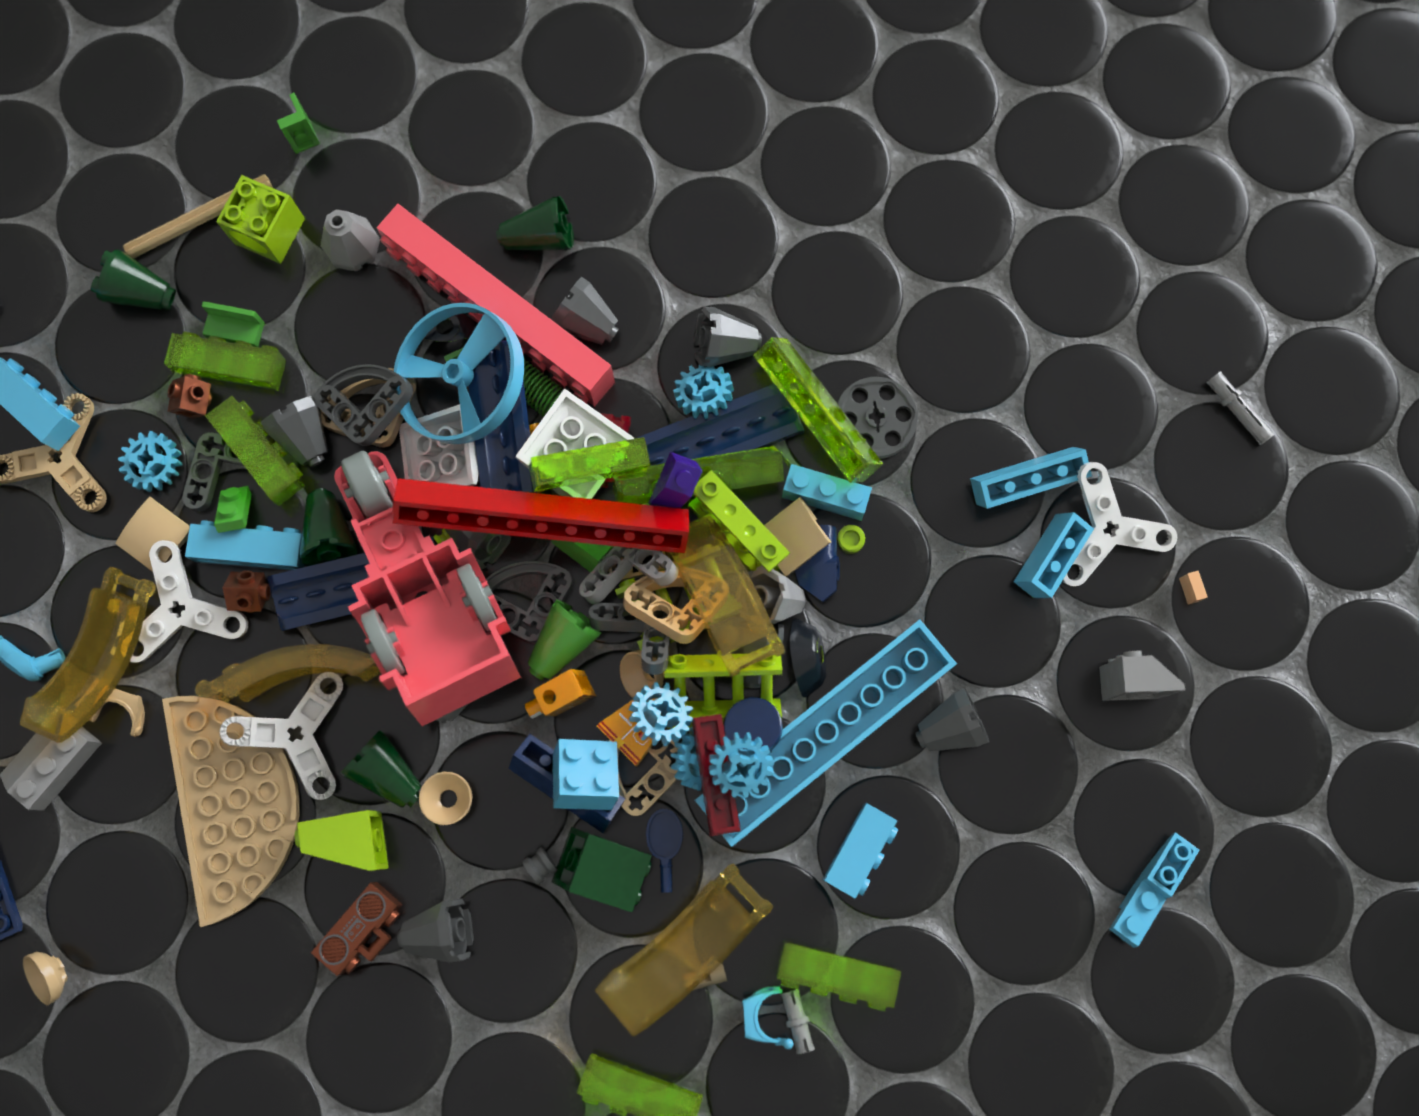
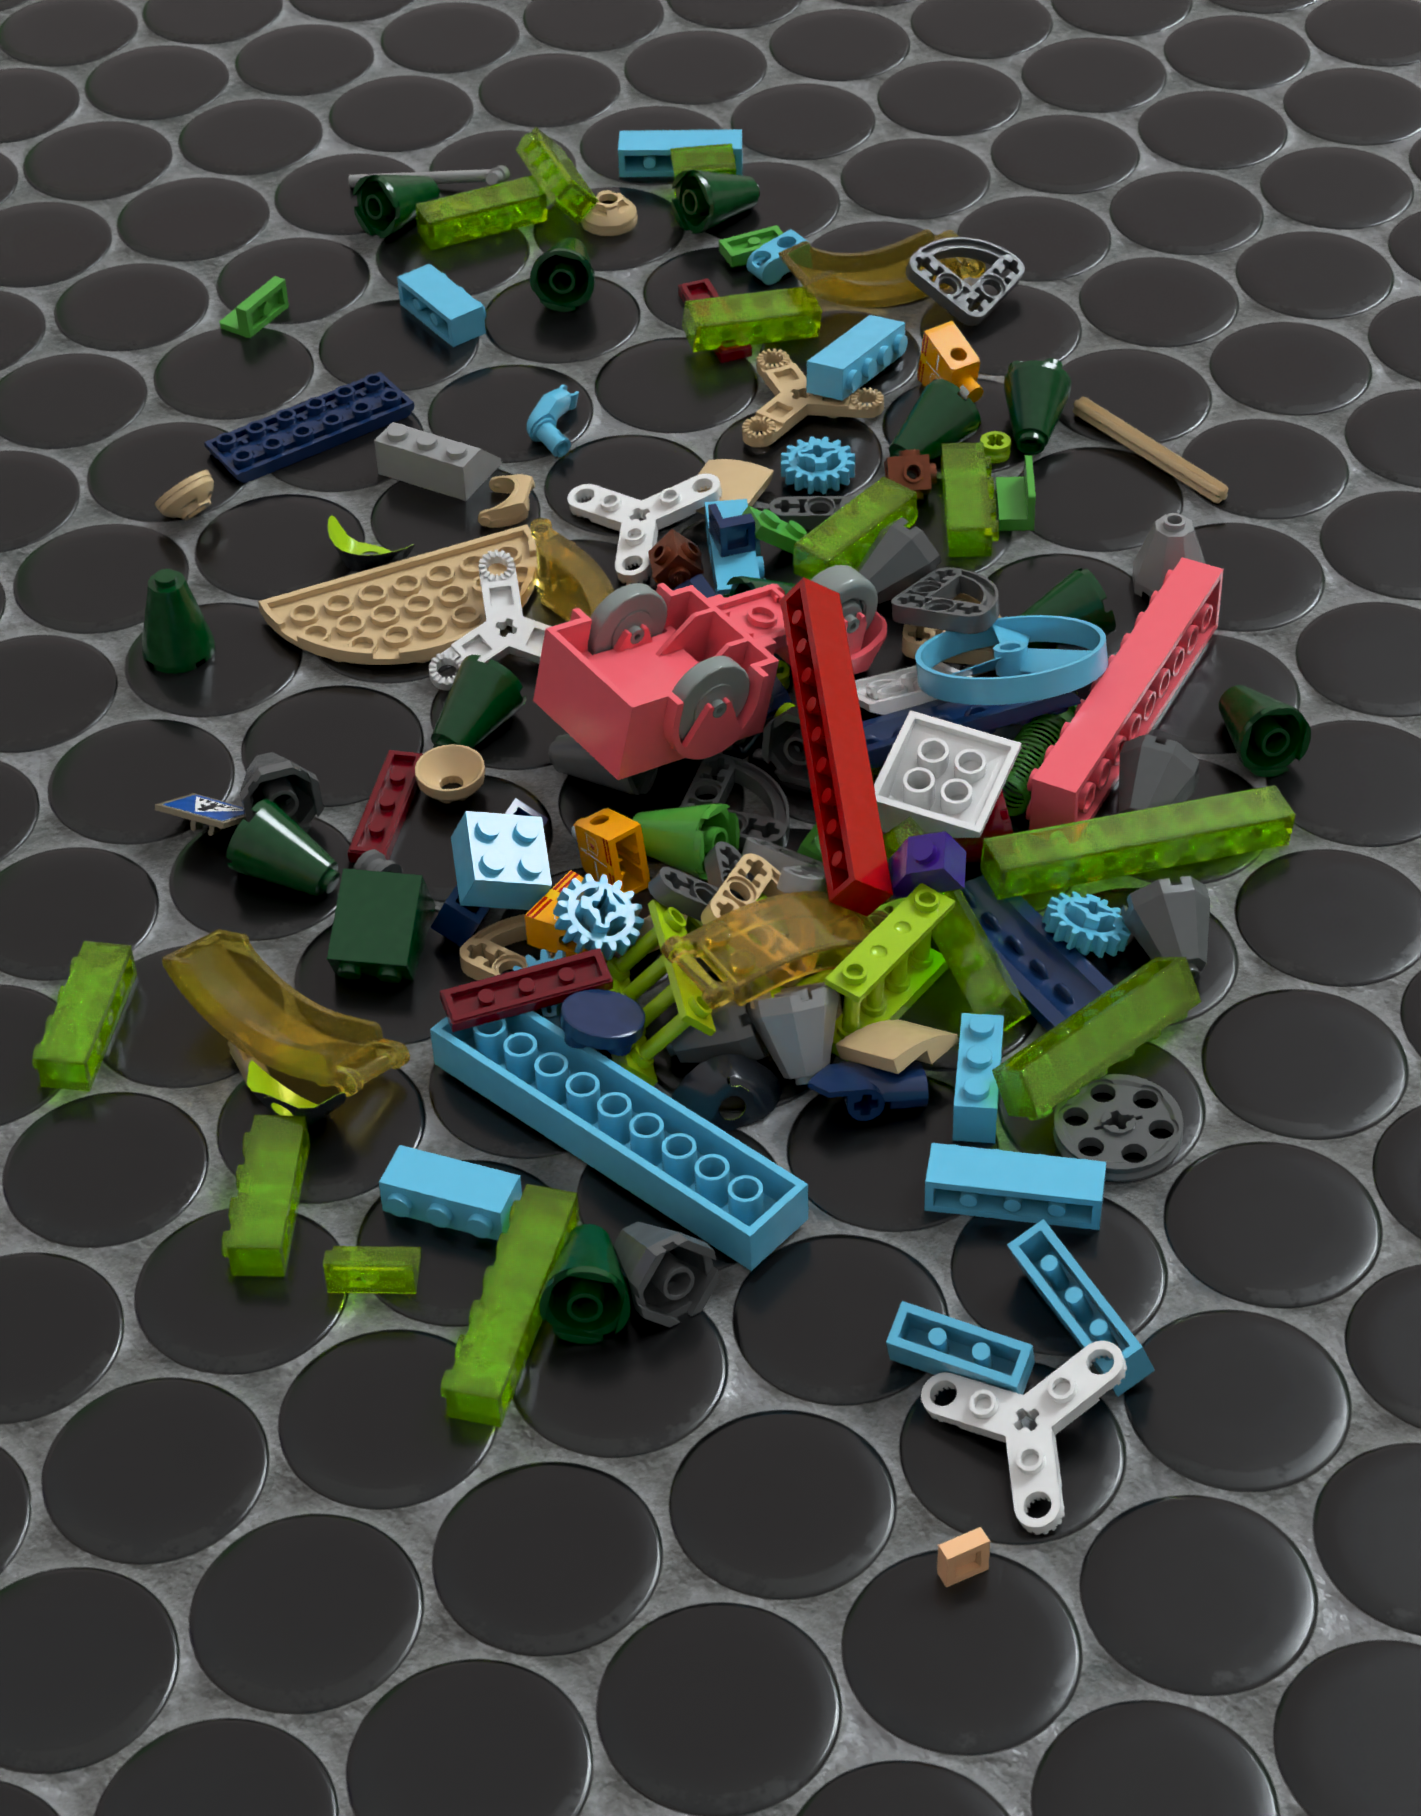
camera: 80 degrees right, 35 degrees down
(62, 334) = (951, 358): none -> light orange torso
(95, 661) = (558, 464): clear yellow windscreen -> none
(136, 365) = (937, 419): none -> dark green cone
(139, 845) = (352, 550): none -> piece
(153, 321) = (996, 445): none -> lime bush
(224, 997) = (174, 625): none -> dark green cone
(238, 543) = (731, 534): none -> dark blue panel
(261, 219) = (1158, 479): lime brick -> none
(298, 128) = (1302, 492): bright green panel -> none
(346, 839) = (381, 691): lime slope -> none
(346, 939) = (268, 724): copper piece -> none
(387, 322) = (1074, 597): none -> dark green cone
(443, 990) = (203, 811): none -> piece
(460, 849) = (386, 806): none -> dark red tile
(510, 933) = (281, 852): none -> dark green cone
(589, 464) = (919, 771): clear neon green brick -> none
(637, 338) = (1136, 842): none -> clear neon green brick
(664, 841) = (418, 993): dark blue piece -> none
(732, 772) = (541, 991): medium azure gear -> none
(749, 956) = (284, 1102): none -> piece
(750, 1011) = (196, 1111): medium azure helmet -> none
(797, 1021) = (197, 1164): light grey pin -> none
(851, 539) = (918, 1127): lime tile -> none
(906, 909) = (372, 1269): none -> clear neon green panel
(919, 491) = (1015, 1186): none -> medium azure brick
(955, 772) = (585, 1288): none -> dark green cone
(960, 822) = (508, 1313): none -> clear neon green brick
(1137, 678) = (779, 1454): light grey slope -> none
(1152, 889) = (447, 1564): medium azure slope -> none
(1237, 404) = (1307, 1594): light grey pin -> none

